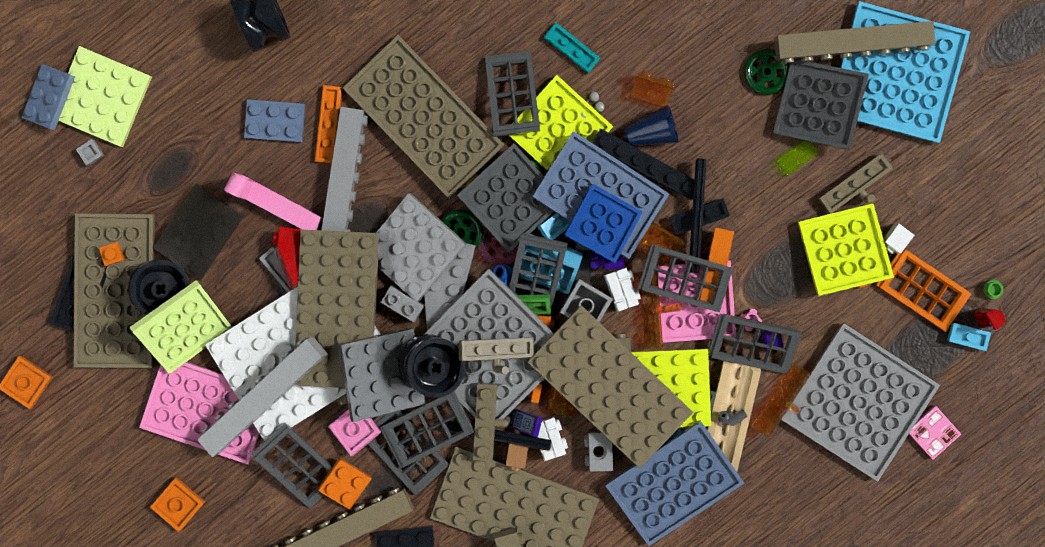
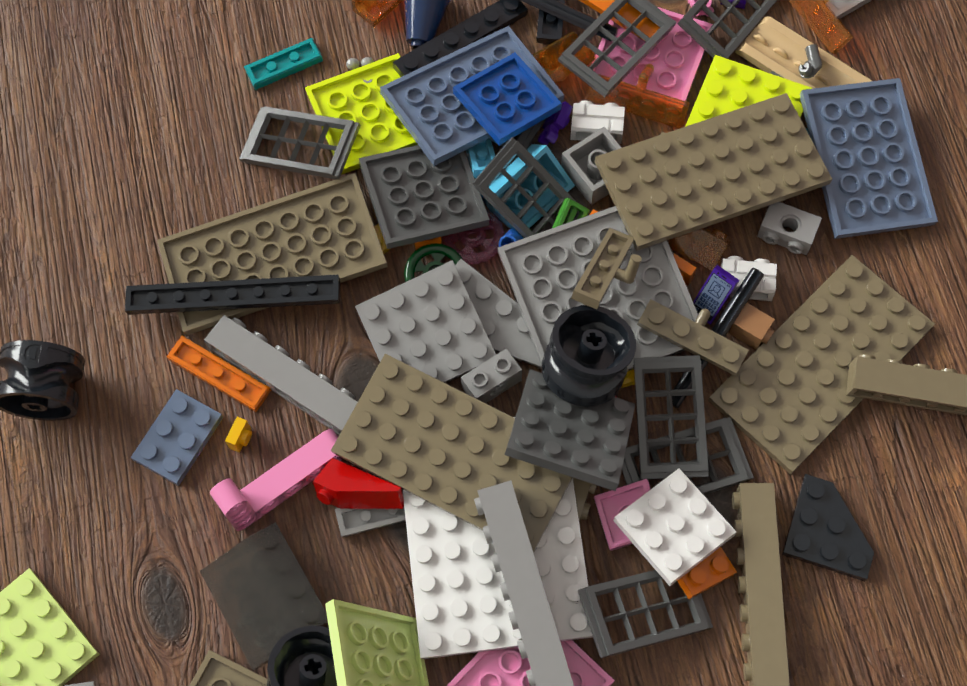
camera: 55 degrees left, 20 degrees down
(292, 161) = (239, 435): none -> yellow plate
(354, 462) = (674, 526): none -> white plate
(379, 109) = (232, 294): none -> black plate

